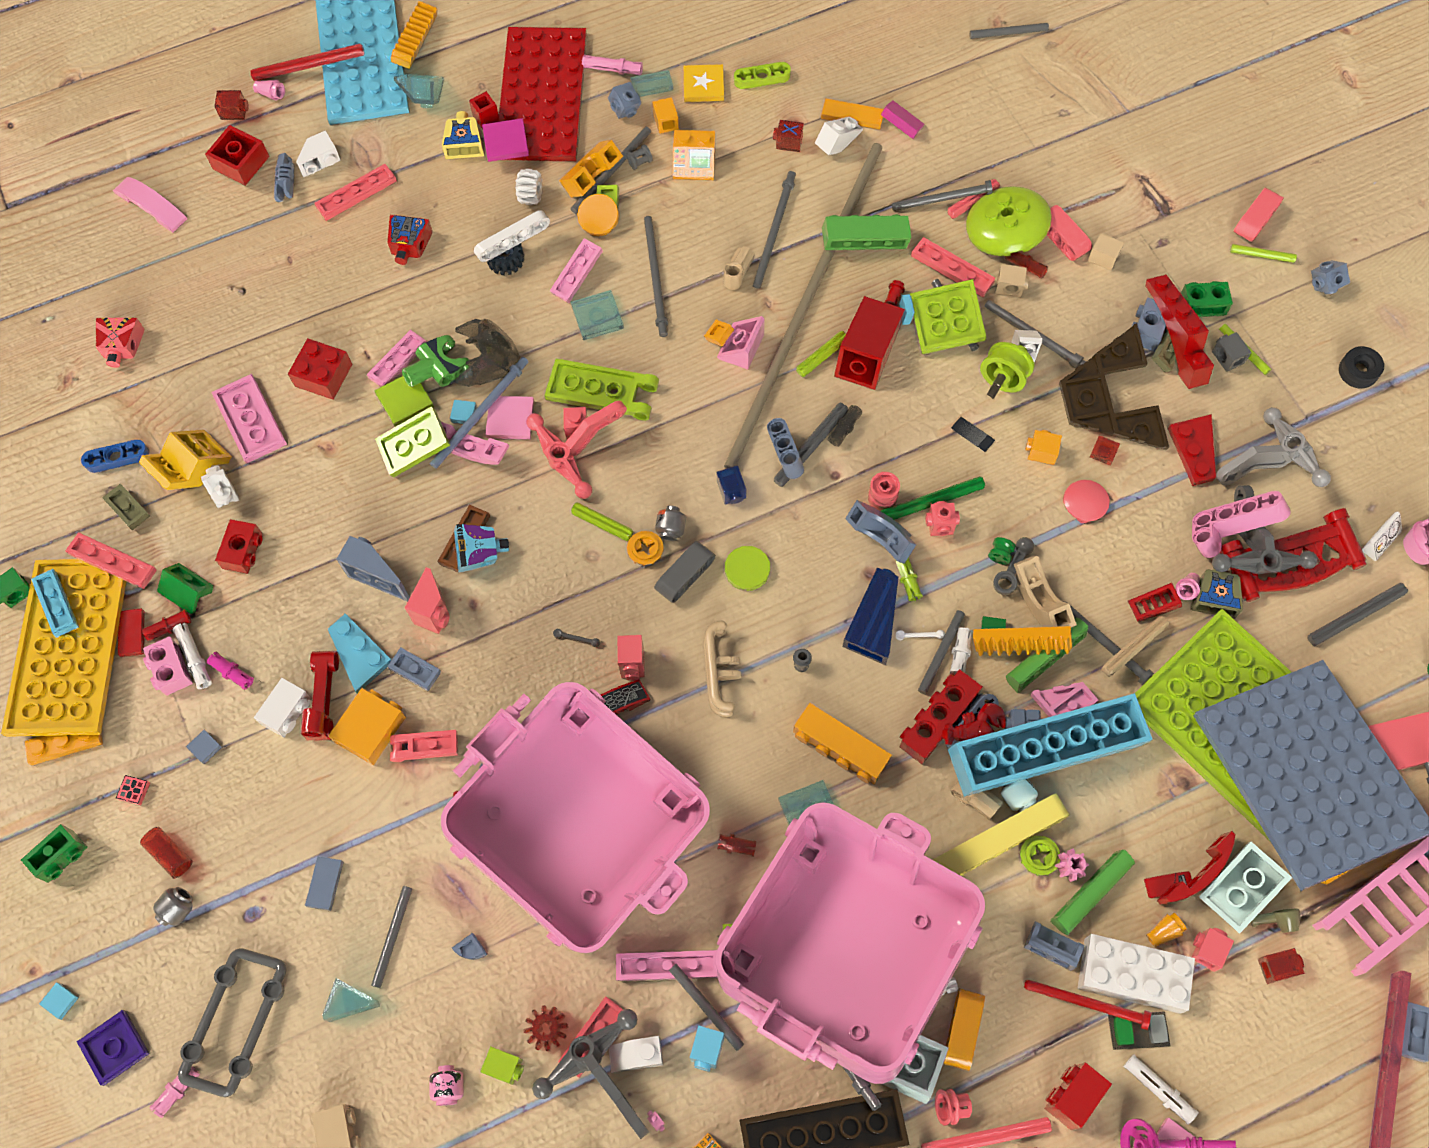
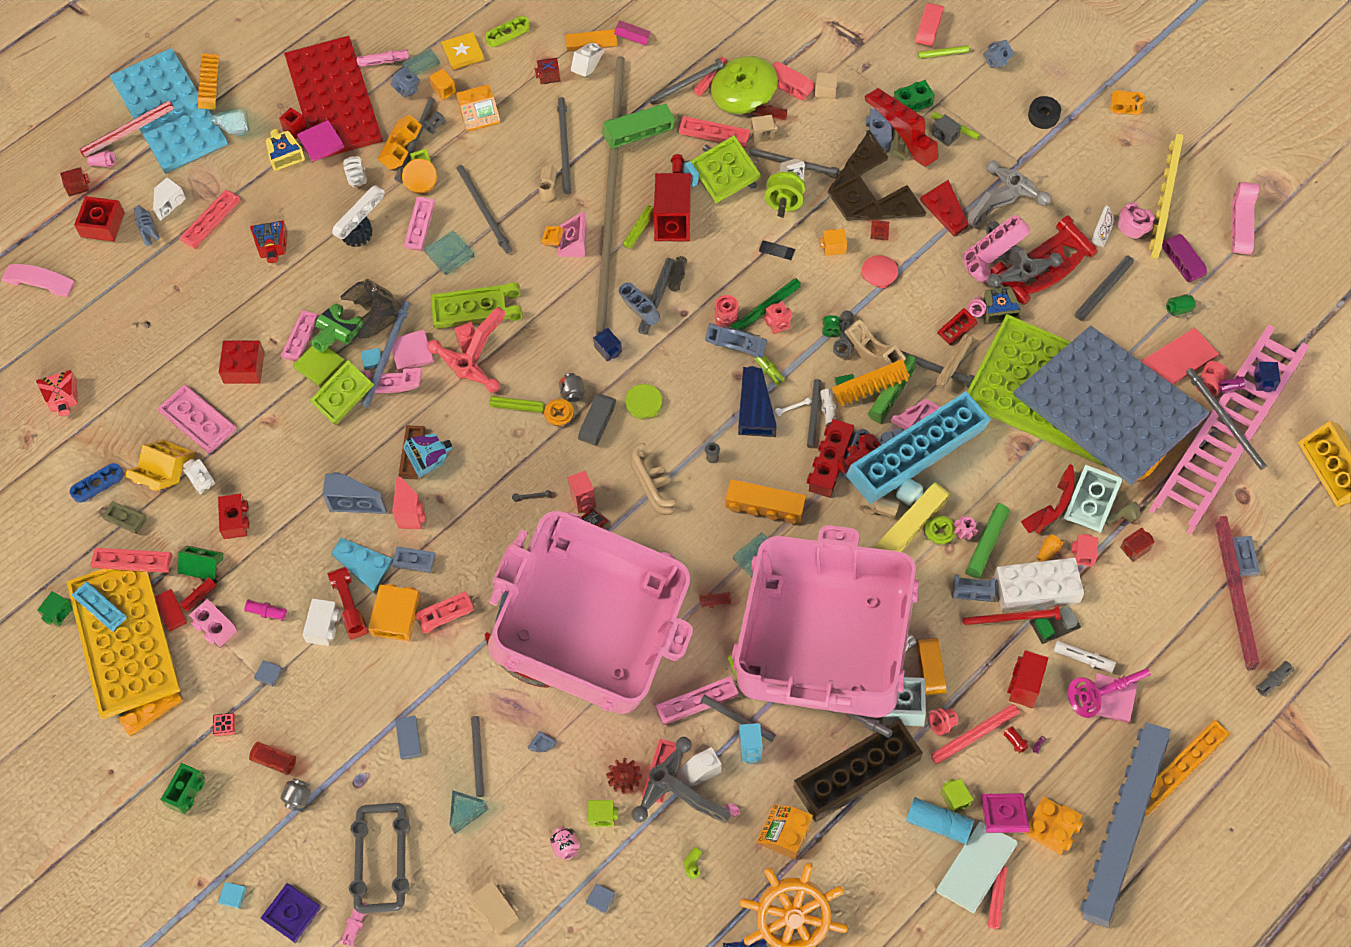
camera: 20 degrees left, 5 degrees down
(195, 663) = (234, 614): white pin -> none

